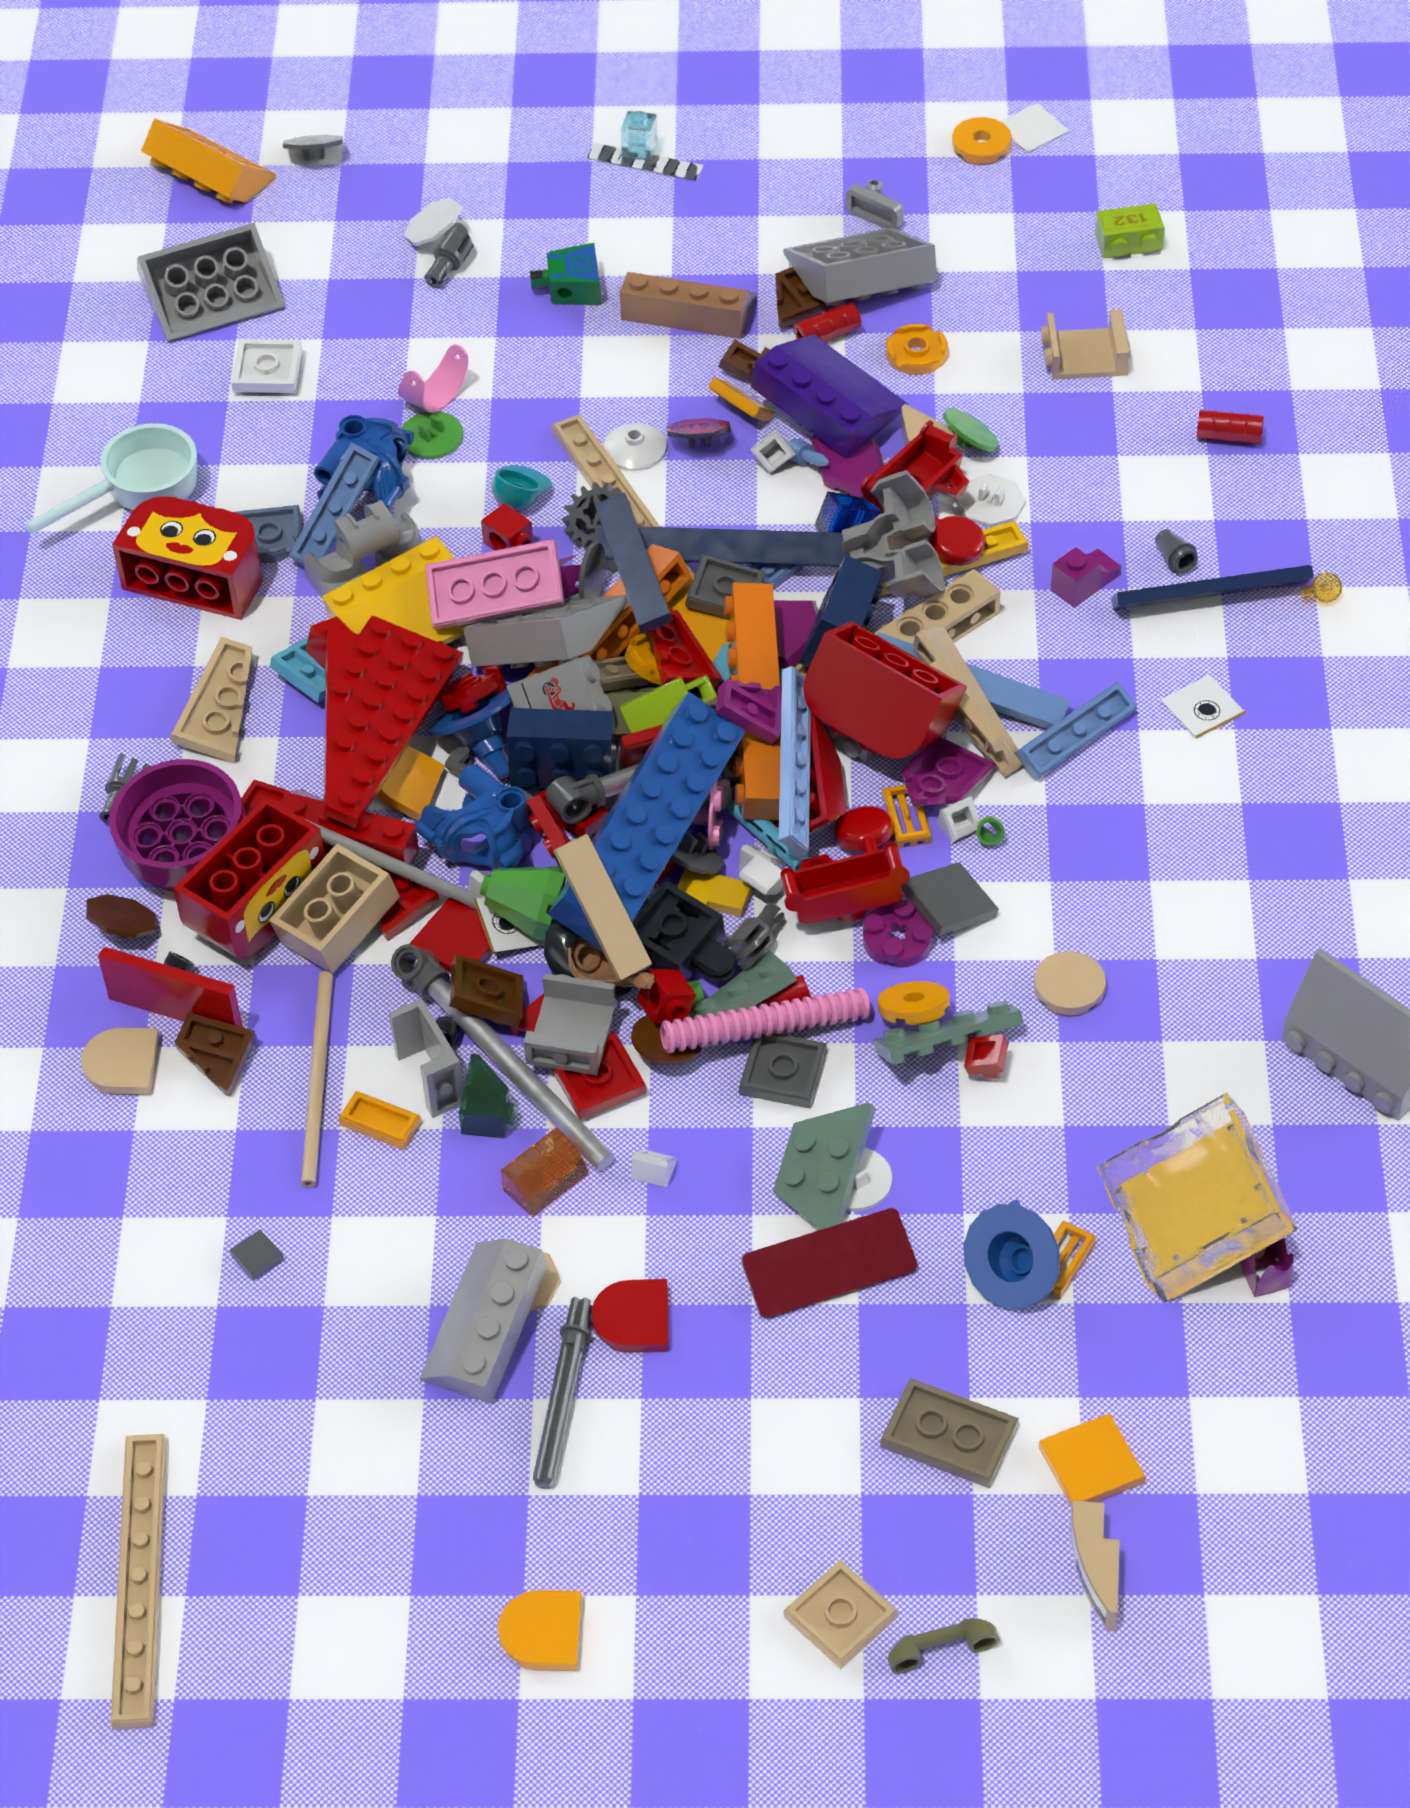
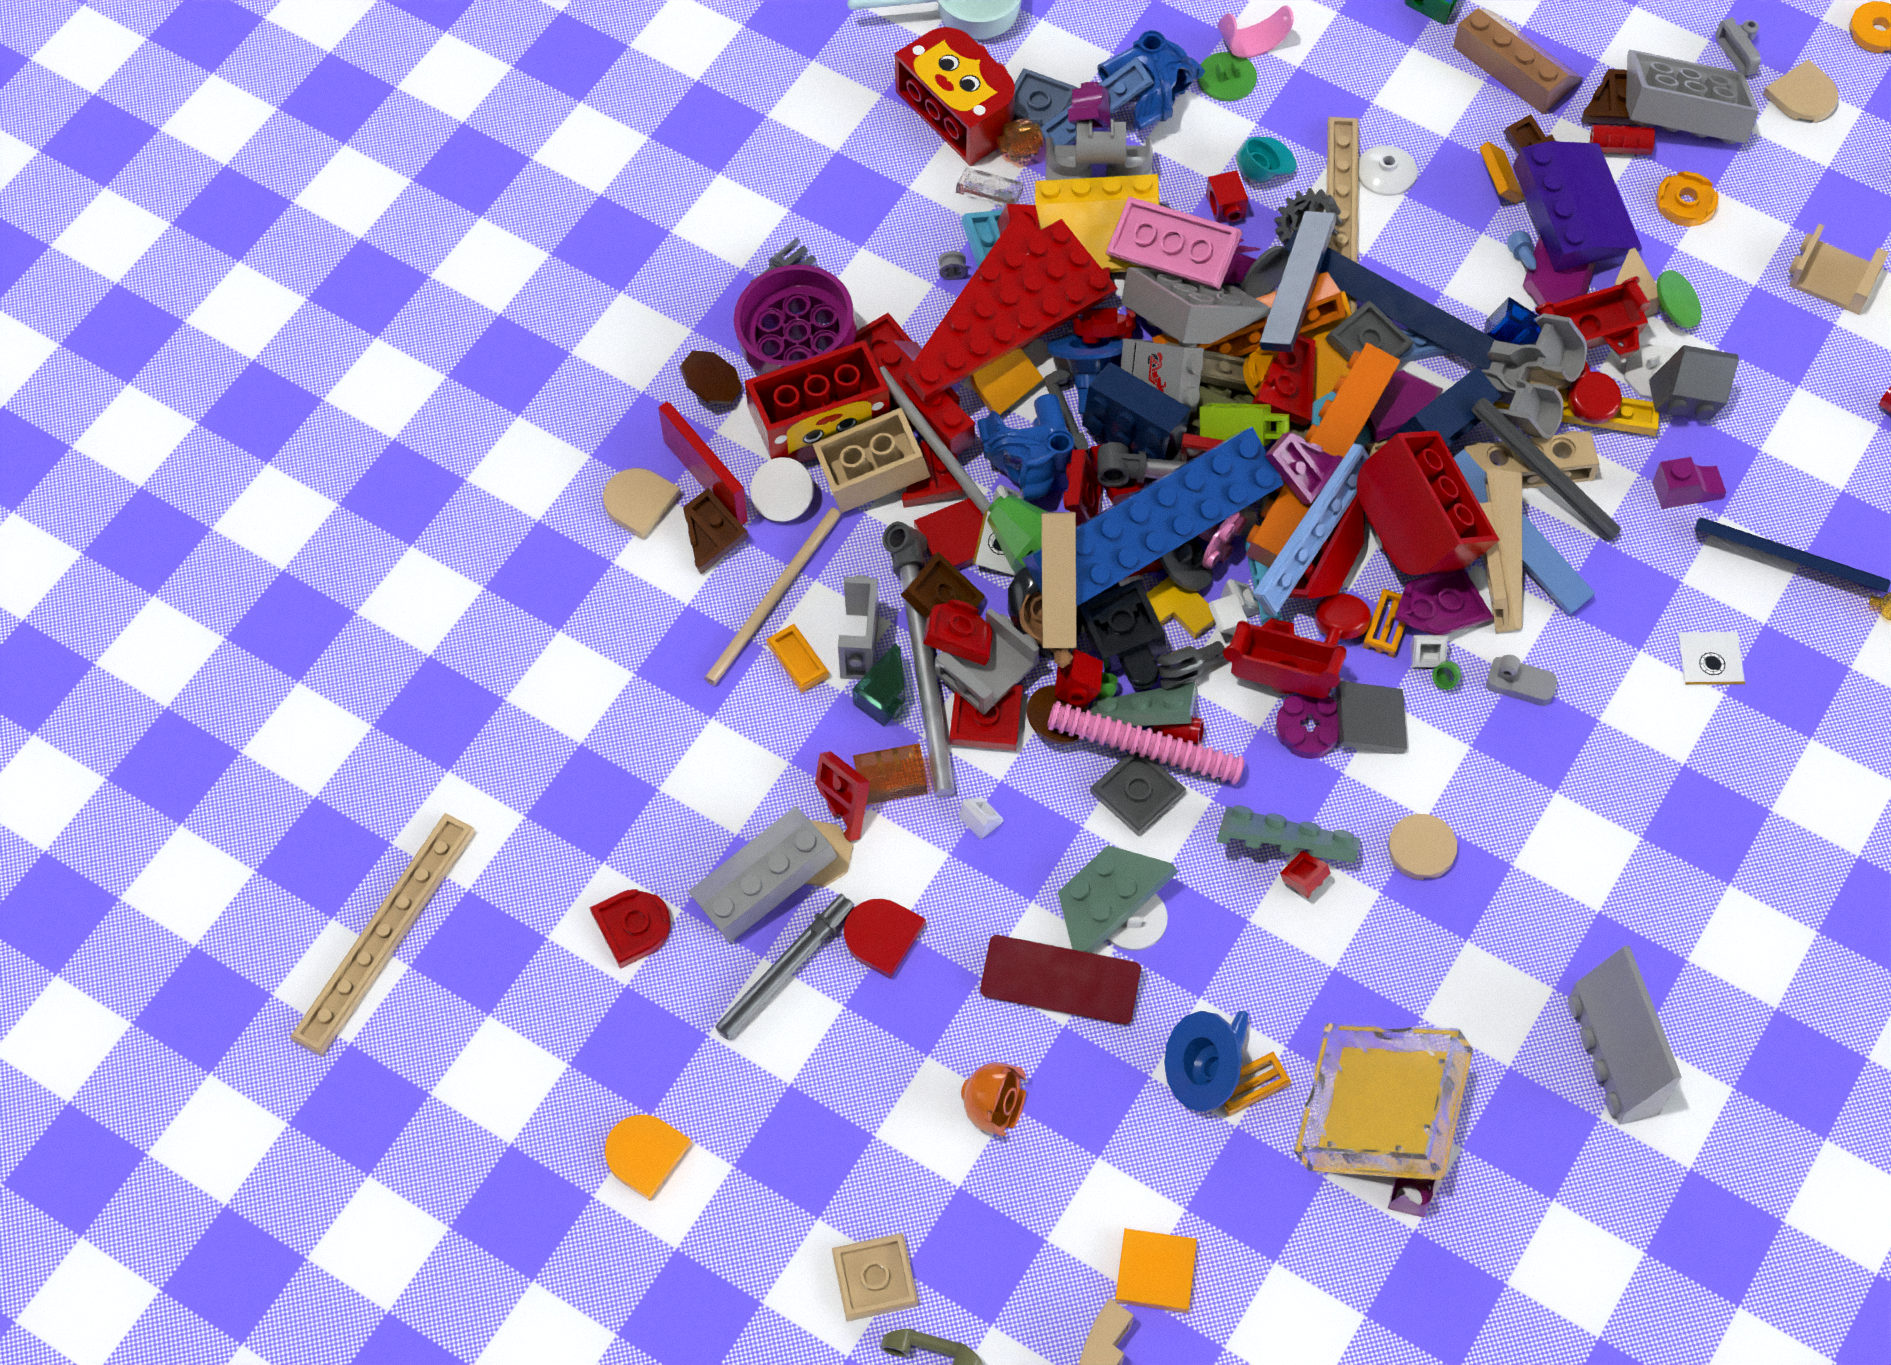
camera: 30 degrees right, 10 degrees up
(178, 961) = (728, 442): black hinge -> none
(216, 706) = (898, 234): tan wing -> none
(256, 1255) = (633, 719): dark grey tile -> none
(263, 978) = (782, 489): none -> white piece
(276, 626) = (989, 187): none -> clear plate
(278, 571) = (1020, 139): none -> clear orange head
(288, 709) = (952, 265): none -> light grey bush
(332, 503) = (1089, 103): none -> magenta arch
(385, 1436) = (632, 924): none -> red tile
(449, 1028) = (892, 610): black hinge -> none
(512, 1207) = (844, 792): none -> red wing
(522, 1009) = (959, 631): none -> red tile
(698, 428) = (1446, 182): clear smoke piece -> none
(773, 451) = (1496, 234): white slope -> none
(841, 1393) = (994, 1097): none -> orange cylinder
(914, 1001) = (1264, 786): light orange tile -> none
(949, 1432) = (1060, 1178): dark tan tile -> none
(955, 220) = (1804, 93): none -> tan tile
(959, 615) = (1546, 469): none -> dark grey axle
(1035, 486) = (1694, 383): none -> dark grey slope
(1056, 804) = (1521, 680): none -> light grey piece
(1076, 730) = (1583, 623): medium blue tile -> none
(1178, 553) = (1784, 504): dark grey cone -> none

